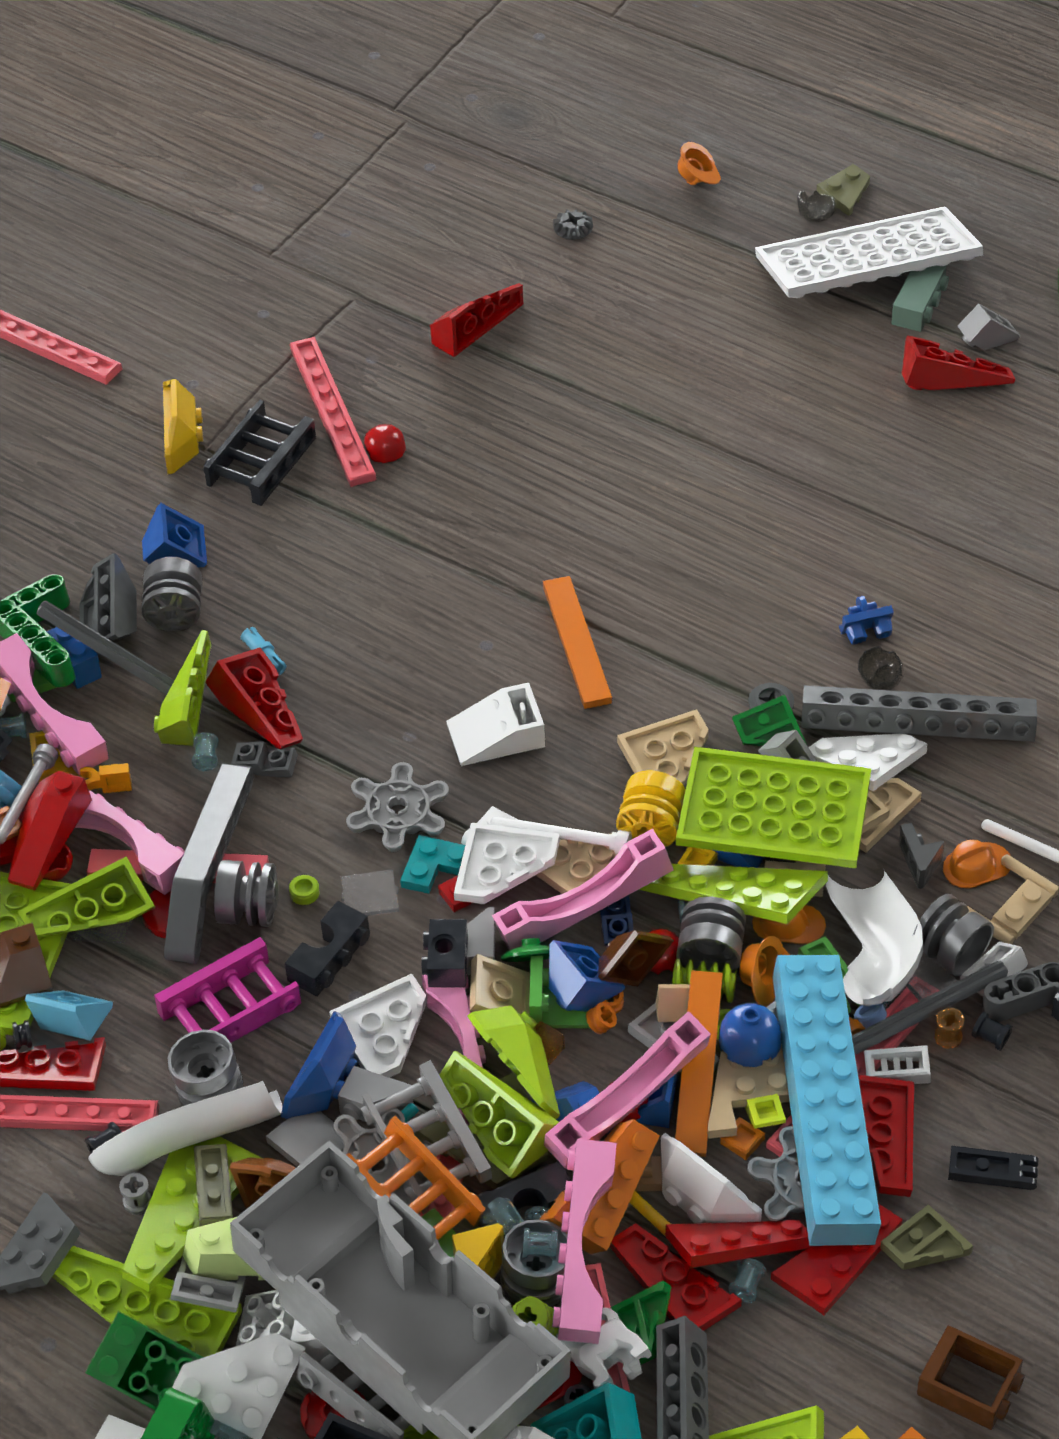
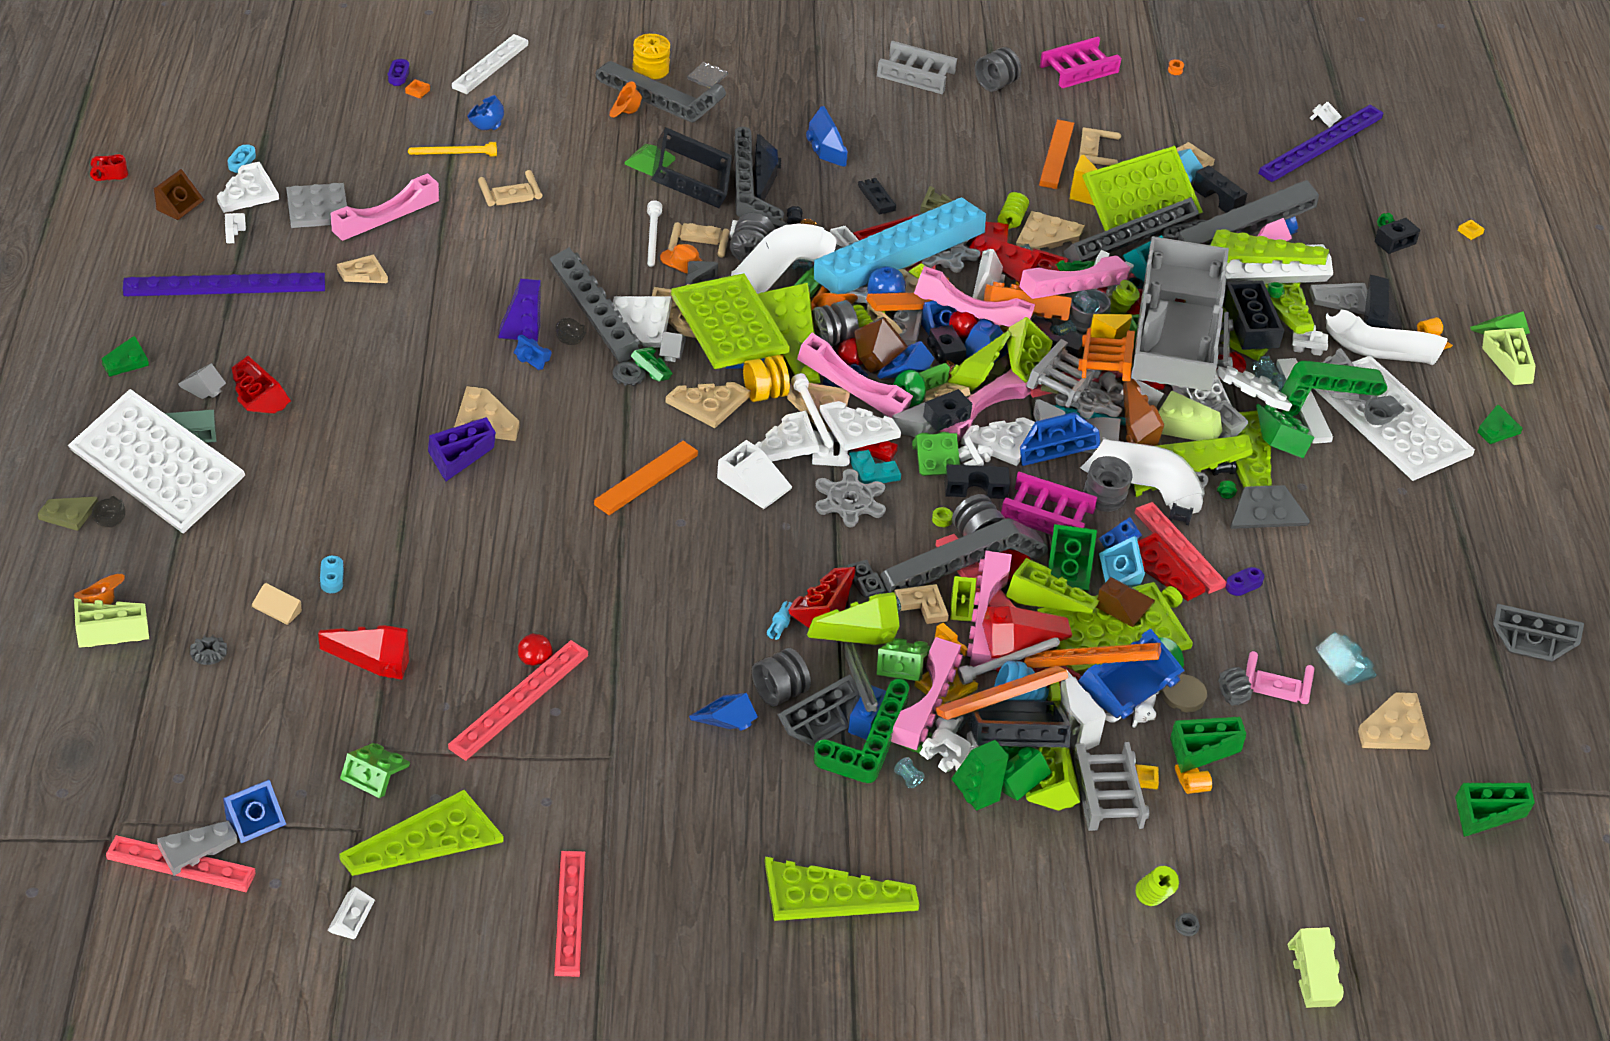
camera: 130 degrees left, 5 degrees down
(22, 1035) = (1160, 574): black bush -> none
(105, 1230) = (1227, 489): none -> green plate
(115, 1035) = (1120, 533): none -> blue hips
(121, 723) = (902, 659): none -> bright green bracket
(131, 971) = (1072, 555): none -> green slope
(162, 820) = (962, 598): none -> lime slope
(178, 216) = (351, 914): none -> white slope
(180, 425) = (610, 770): yellow wedge -> none
(185, 796) = (926, 598): none -> tan plate
(212, 1183) = (1177, 438): olive tile -> none
(217, 288) = (437, 831): none -> lime wing
(274, 468) = (599, 694): black fence -> none
(325, 138) = (207, 870): none -> coral tile
(328, 278) = (371, 768): none -> bright green bracket
(331, 142) = (194, 844): none -> light grey wing
(337, 187) = (253, 811): none -> blue slope
(369, 970) = (969, 451): none -> white hips
(371, 892) = (918, 489): clear piece -> none
(403, 933) = (935, 452): none -> bright green bracket
(504, 1213) = (1081, 325): clear light blue tile -> none
(538, 792) = (790, 438): none -> white plate
(581, 1061) = (946, 345): none -> black brick
(598, 287) = (277, 604): none -> tan slope
(614, 338) = (331, 574): none -> medium azure plate
(650, 159) = (110, 623): none -> yellowish green wedge
(728, 486) = (461, 446): none -> dark purple wedge
(780, 1360) = (1048, 231): none -> tan plate
(783, 543) = (480, 403): none -> tan plate
(846, 1332) = (1013, 210): none -> lime piece
(924, 619) = (523, 312): none -> dark purple wedge
(982, 1354) = (999, 178): reddish brown window -> none

